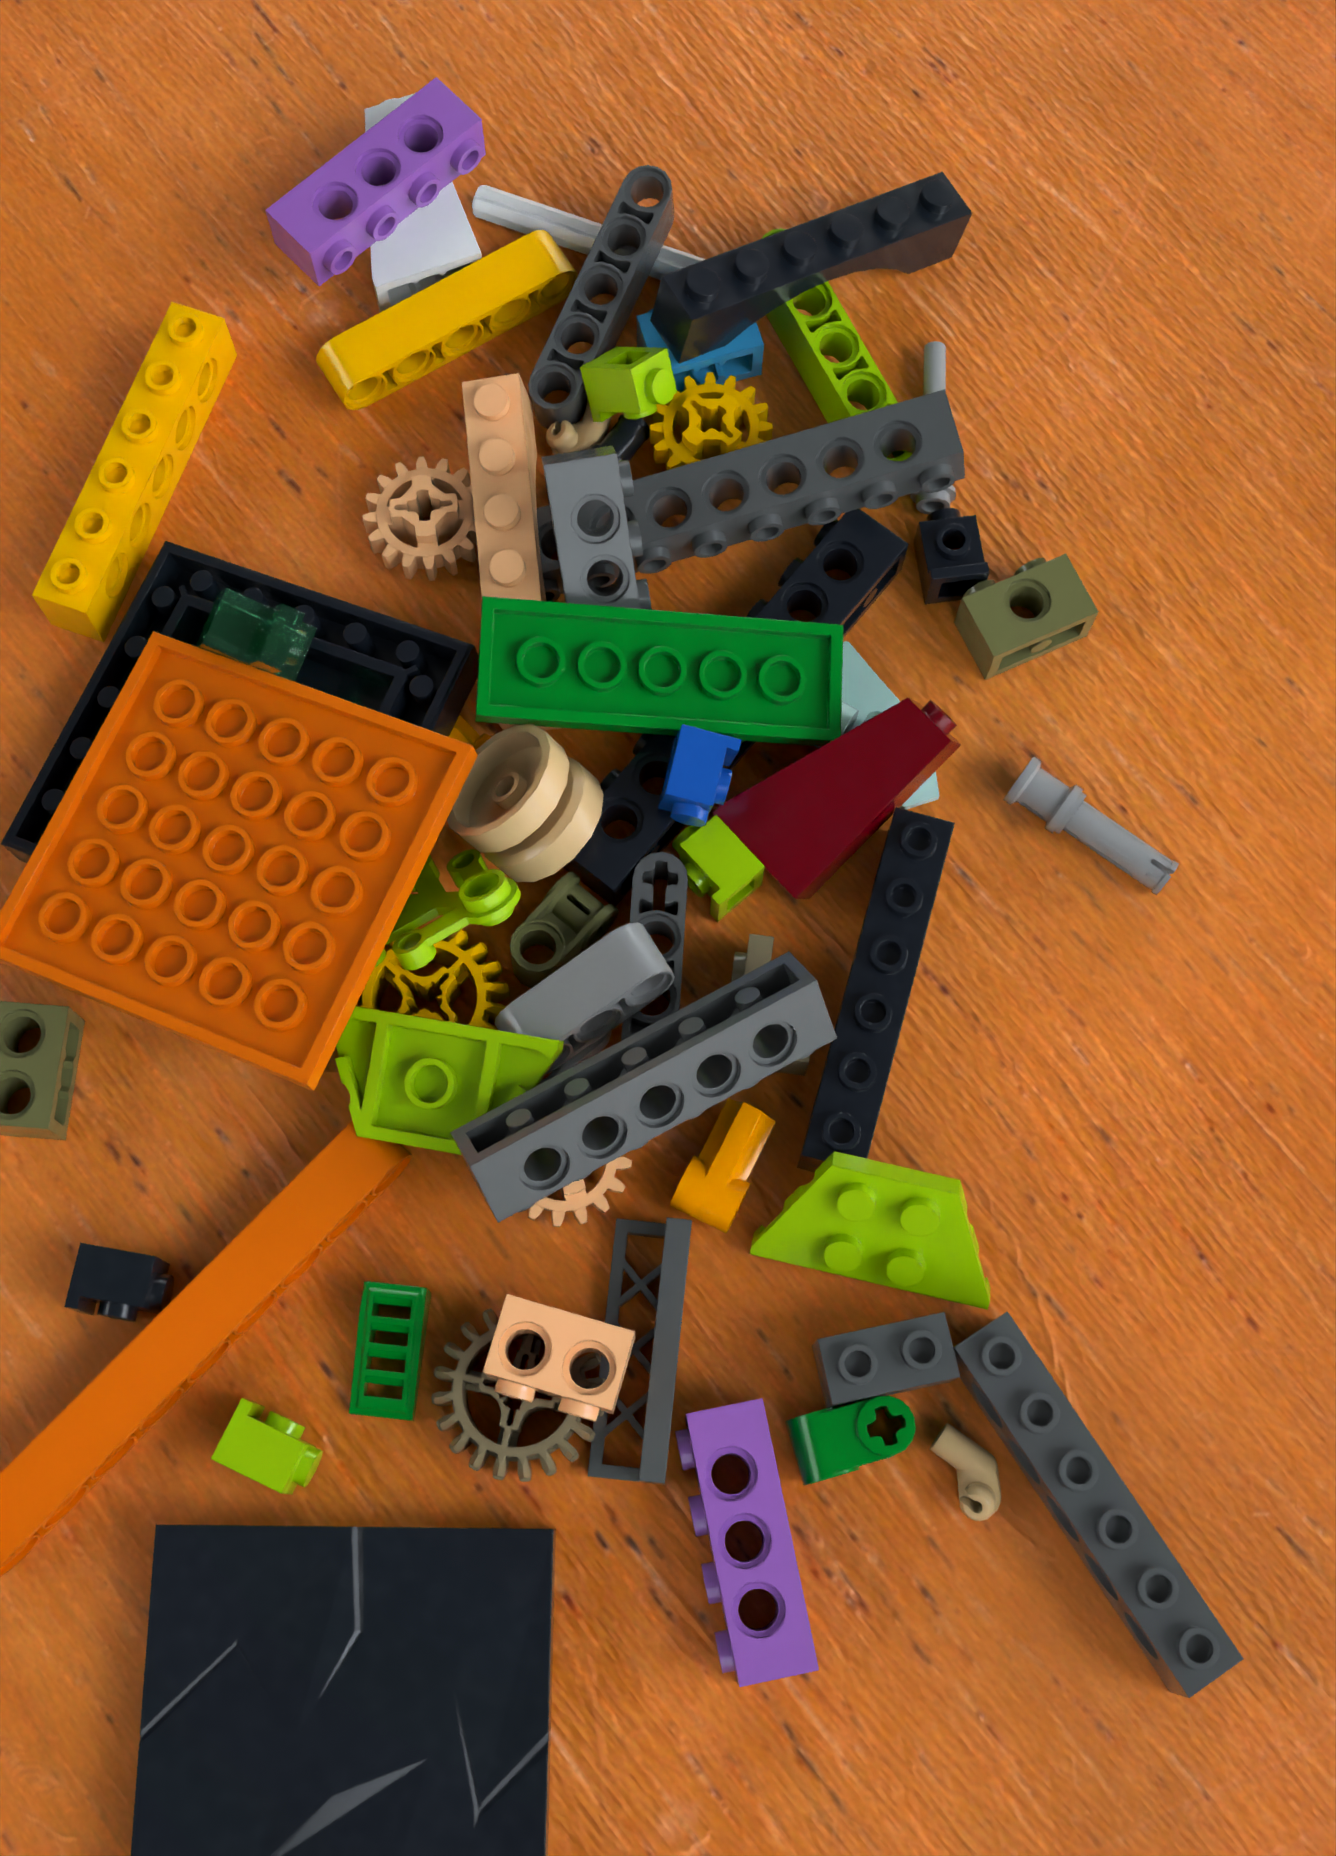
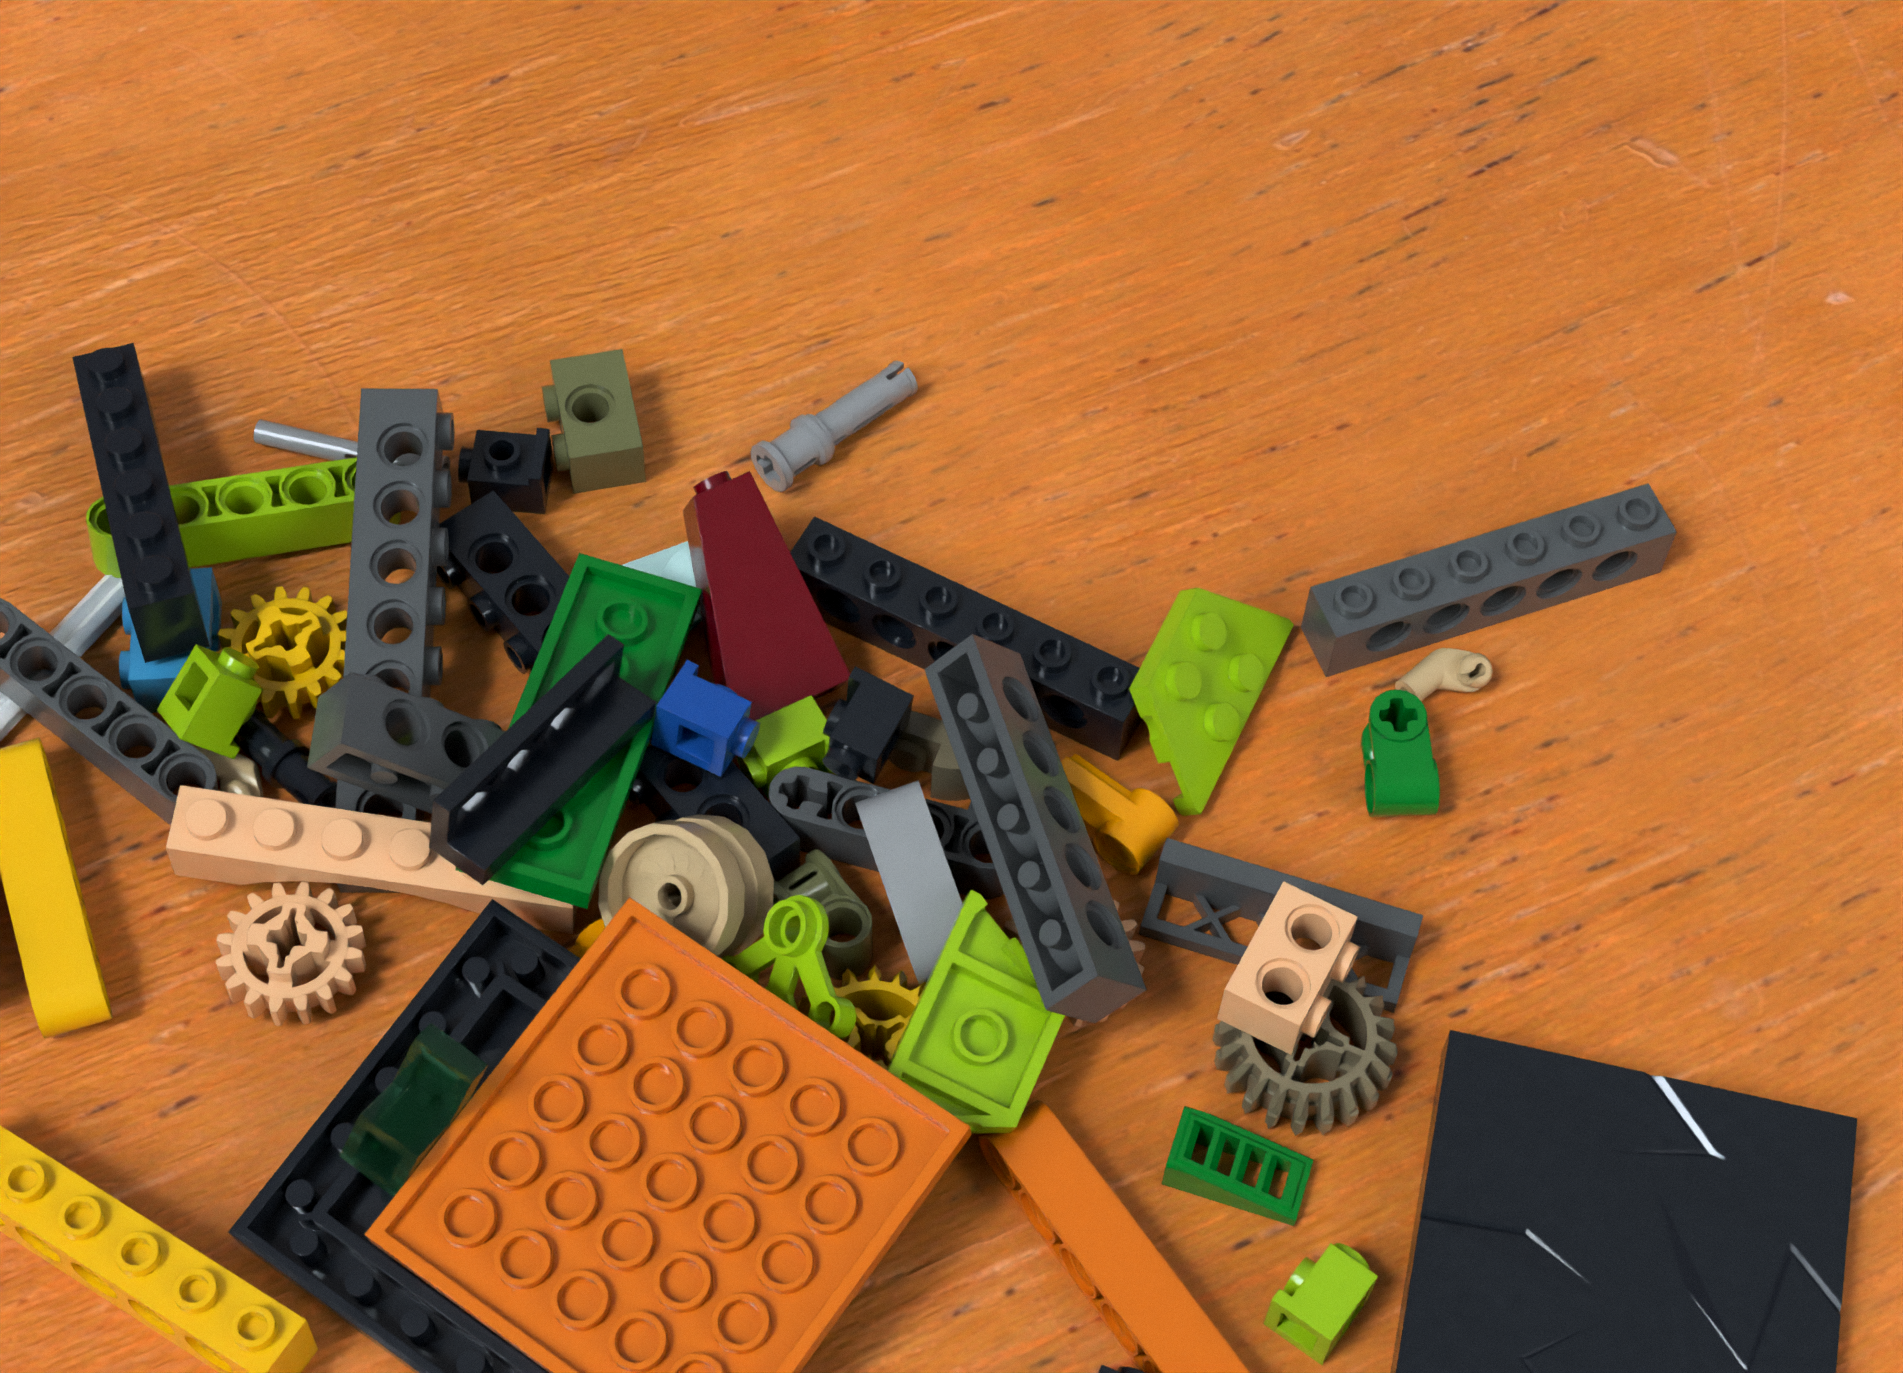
camera: 80 degrees left, 15 degrees down
(585, 638) = (538, 764): none -> black fence
(724, 916) = (865, 726): none -> black brick
(786, 1643) = (1512, 849): medium lavender brick -> none
(885, 1360) = (1332, 713): dark grey brick -> none

